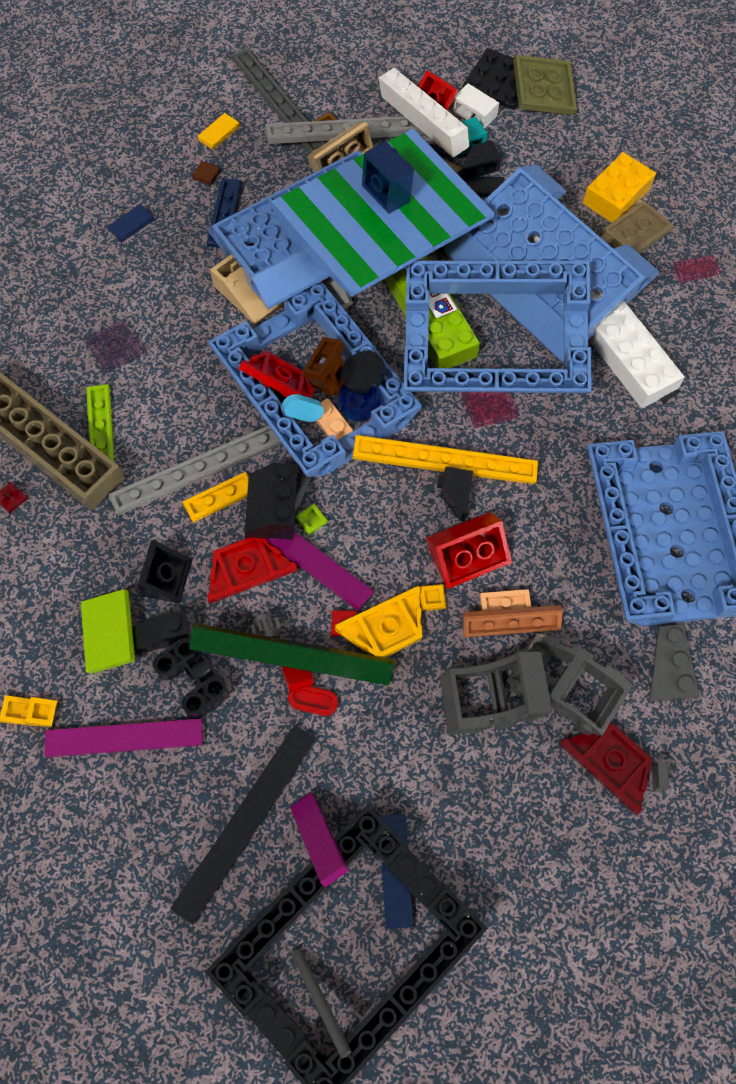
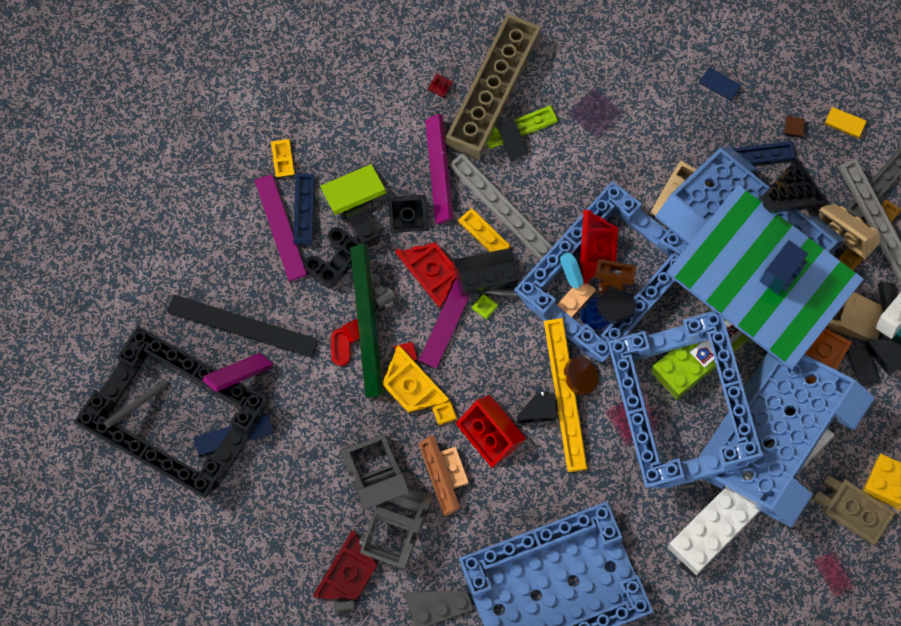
camera: 80 degrees right, 5 degrees up
(110, 700) = (303, 209): none -> dark blue tile
(114, 435) = (511, 139): none -> black tile
(118, 524) = (439, 169): none -> magenta tile
(292, 175) = (793, 191): none -> black wing
(428, 434) = (581, 375): none -> reddish brown tile

